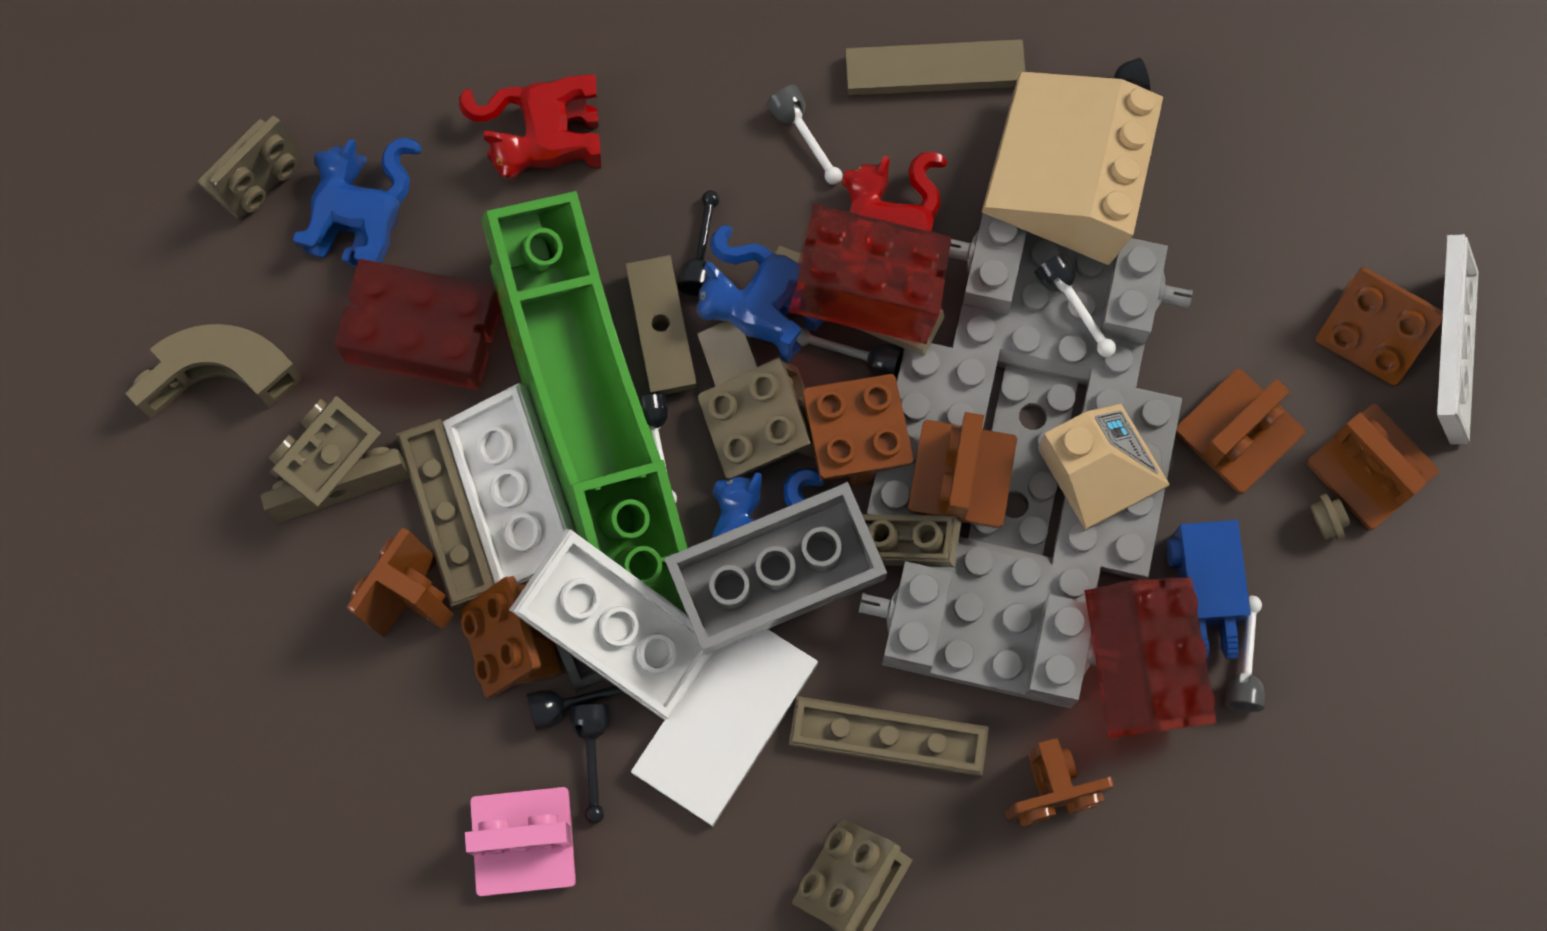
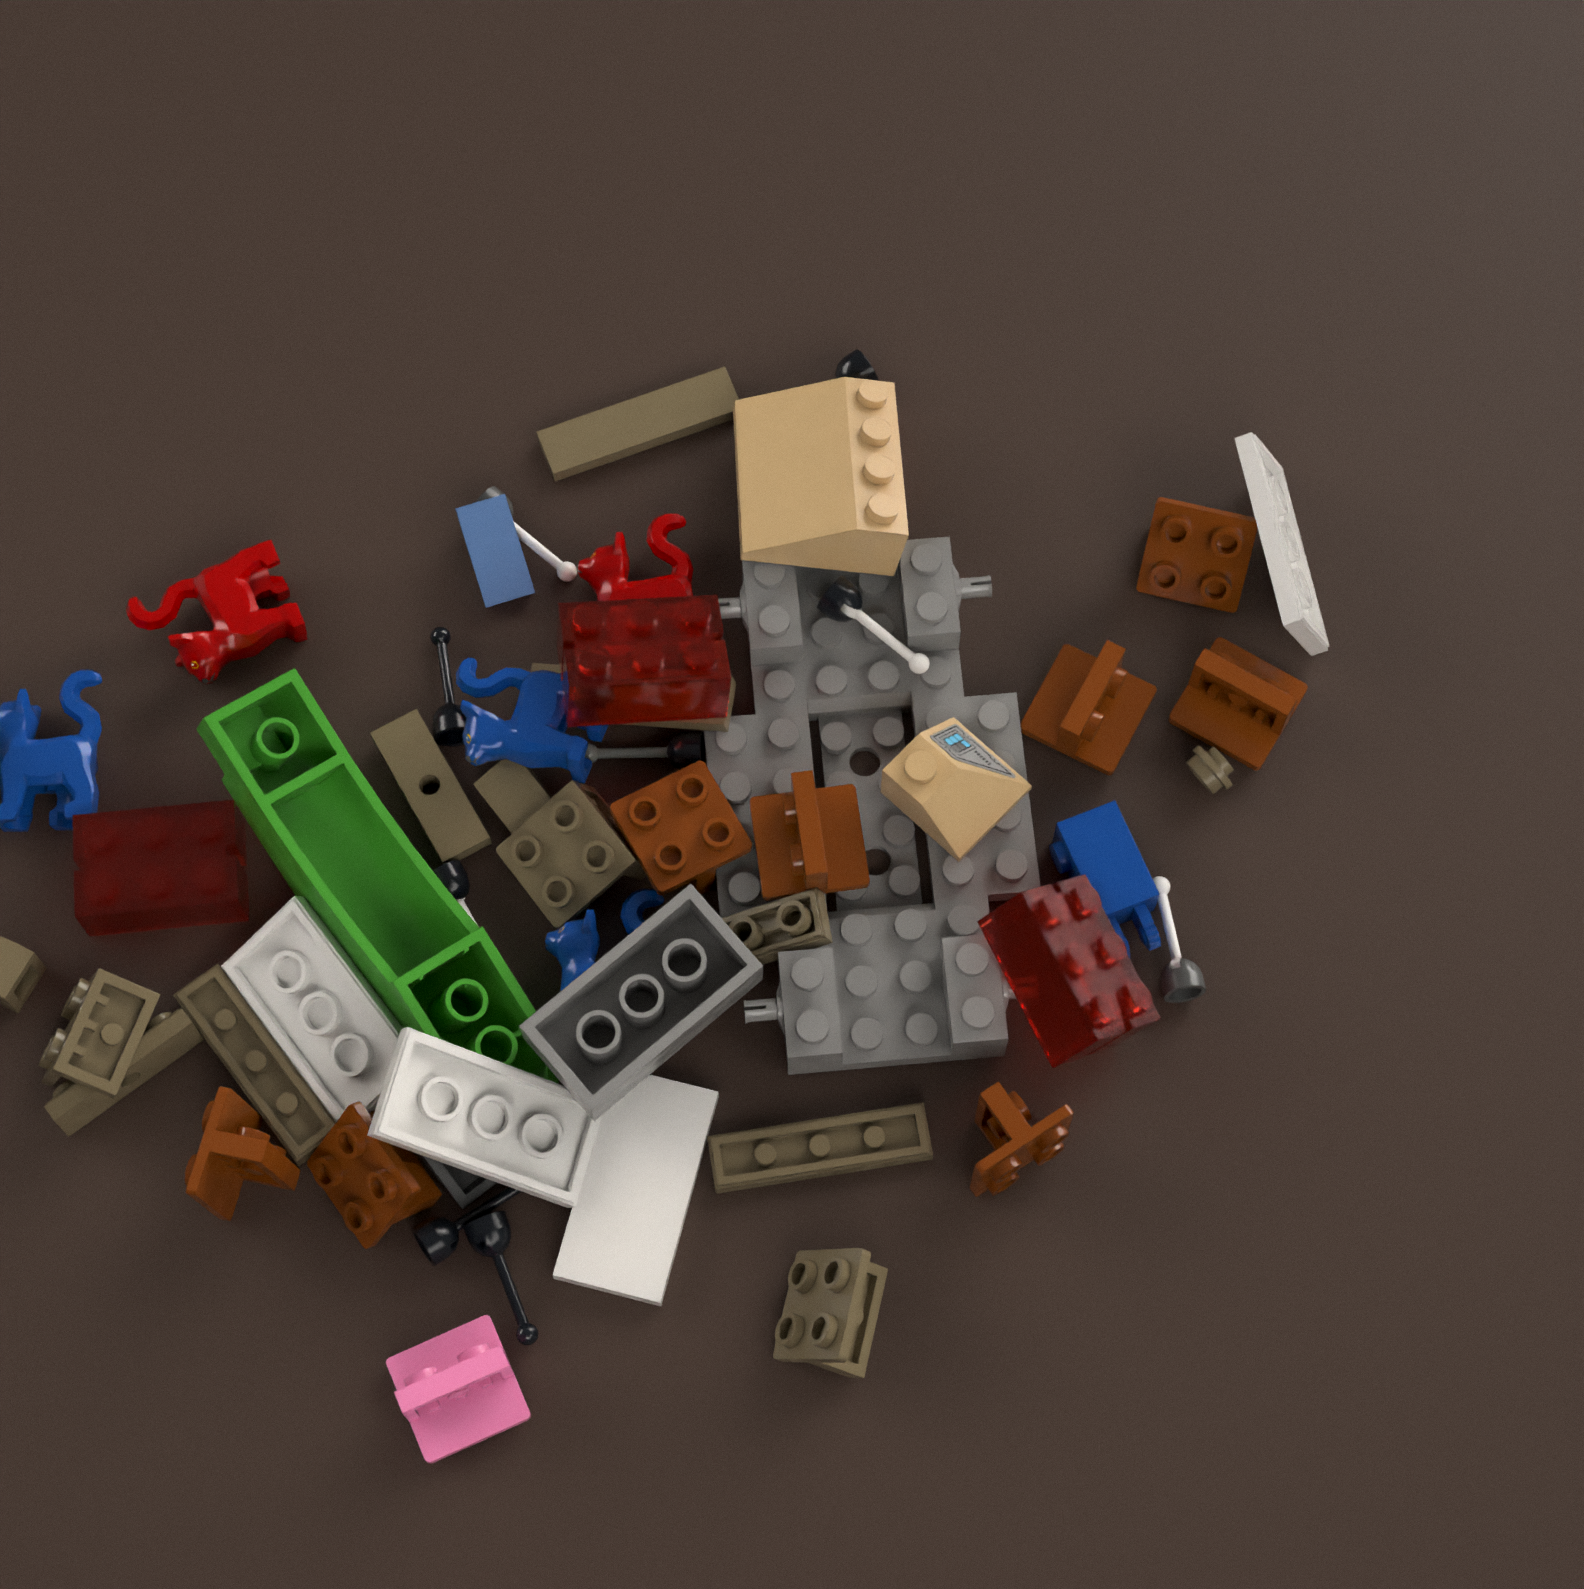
camera: 20 degrees left, 5 degrees down
(778, 139) = (495, 550): none -> medium blue tile

